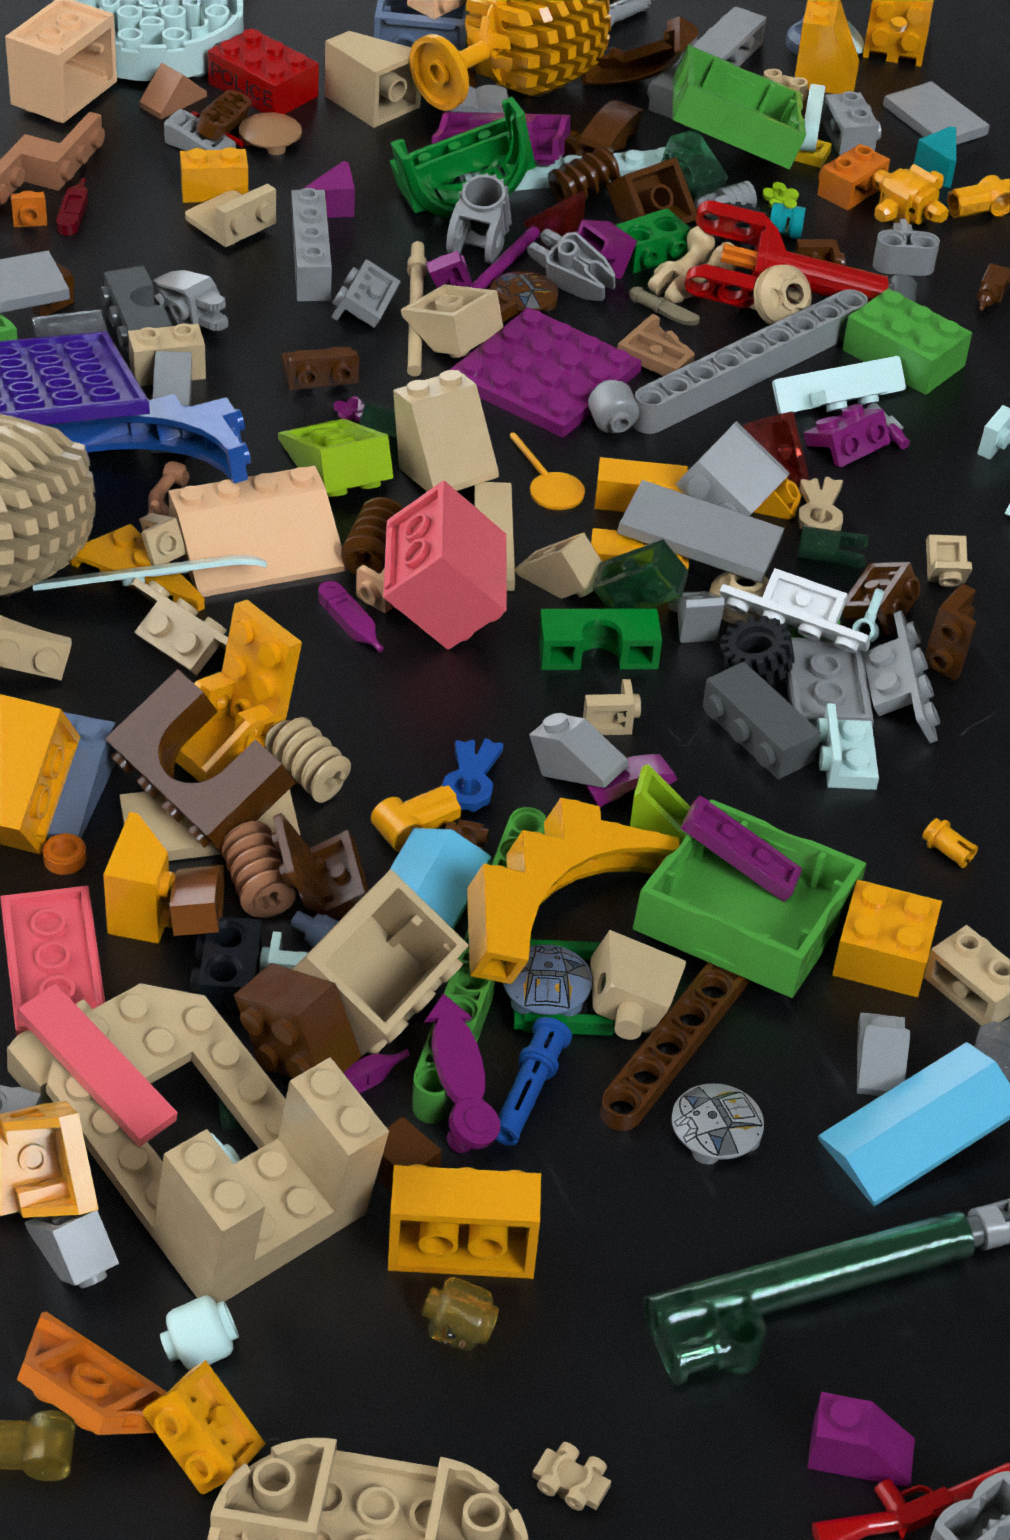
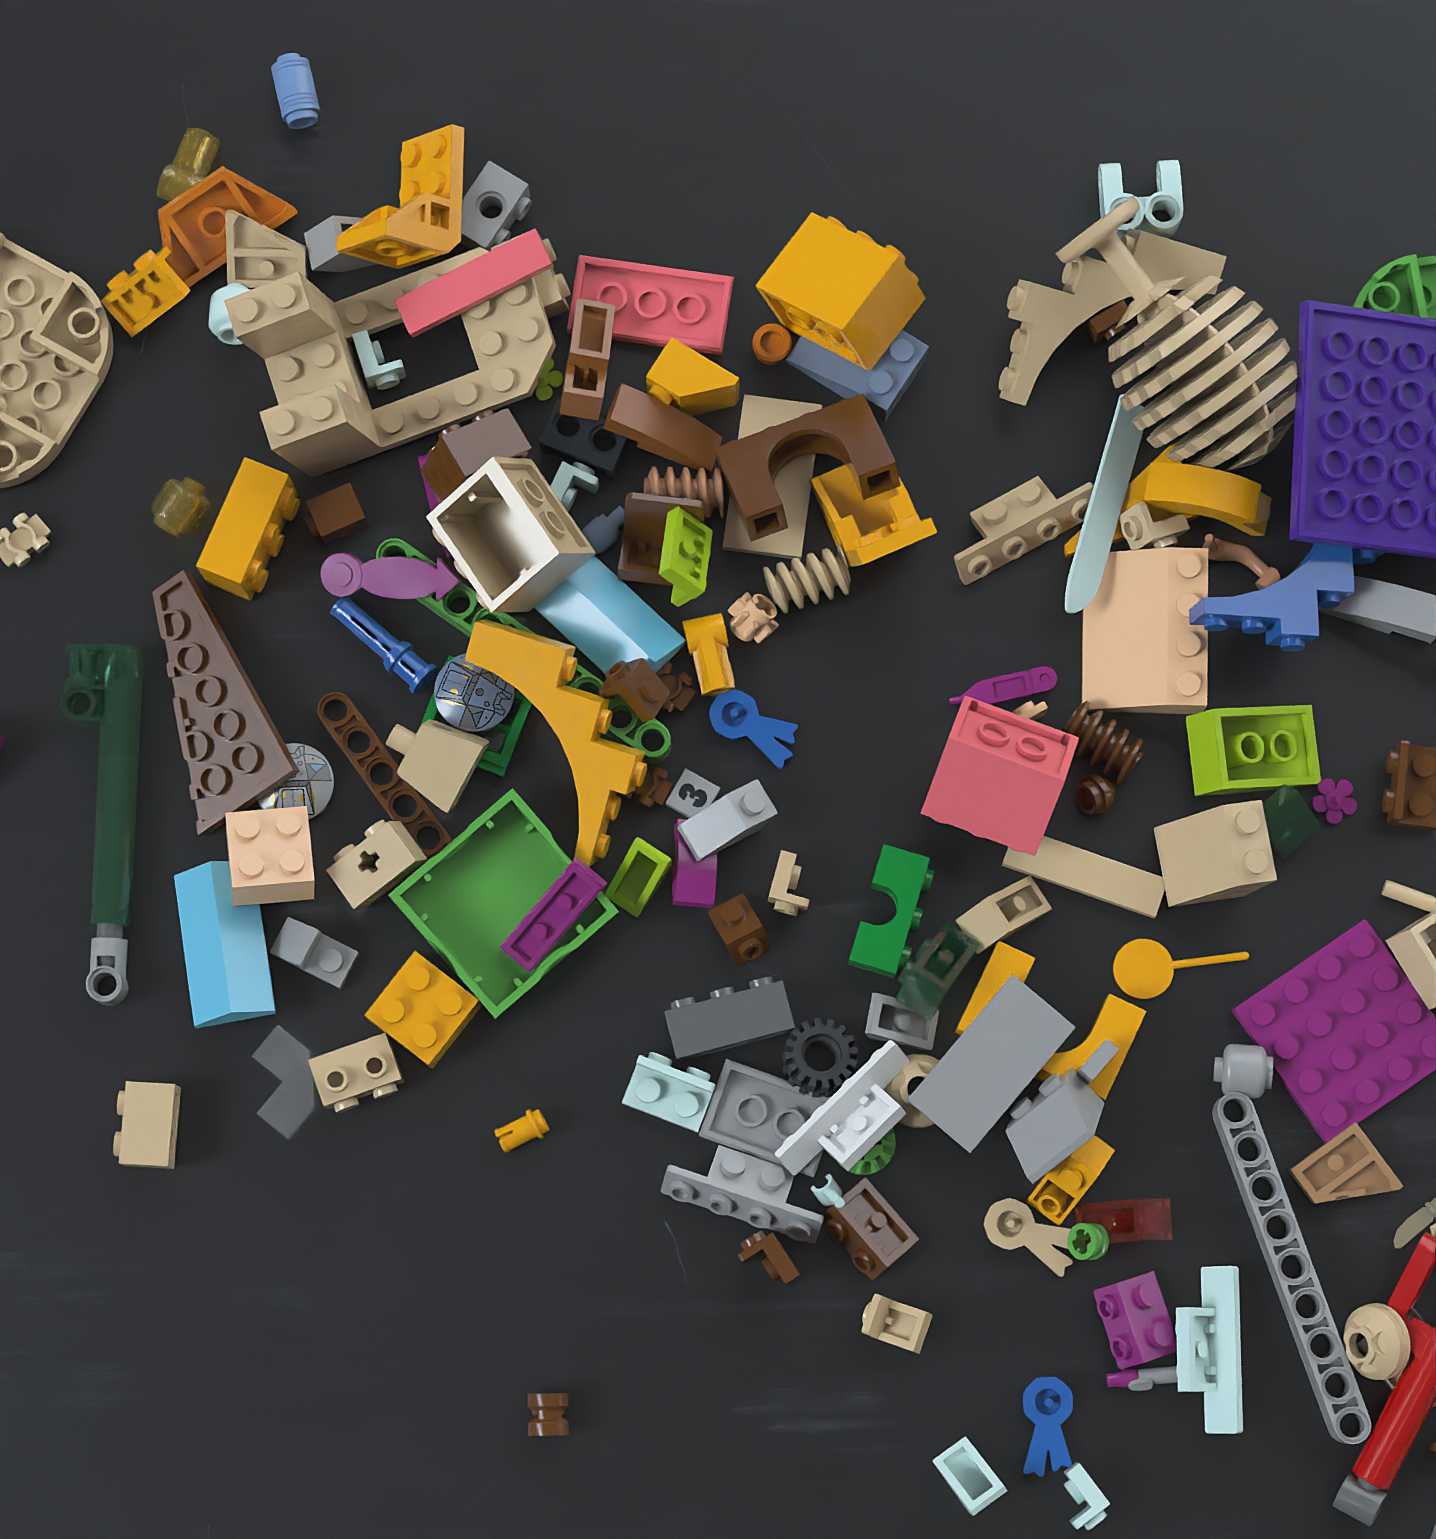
camera: 115 degrees right, 35 degrees up
(117, 502) = (1208, 493): none -> light orange arch
(118, 1324) = (259, 253): none -> tan wing
(167, 963) = (587, 359): none -> dark orange slope
(339, 824) = (685, 555): none -> lime bracket
(365, 788) = (753, 617): none -> light nougat gear
(482, 838) = (637, 686): none -> reddish brown bracket
(555, 790) = (692, 794): none -> light grey tile
(662, 462) = (1097, 1061): none -> light grey tile
(670, 734) = (740, 930): none -> reddish brown bracket
(690, 1194) = (219, 716): none -> wing
(767, 1009) = (397, 860): none -> tan brick
(813, 1095) = (270, 856): none -> light nougat brick
(818, 458) = (1082, 1232): none -> bright green bush
(824, 544) = (961, 1203): clear green hinge -> none
(925, 342) = (1273, 1463): bright green brick -> none
(952, 471) = (1047, 1404): none -> blue piece

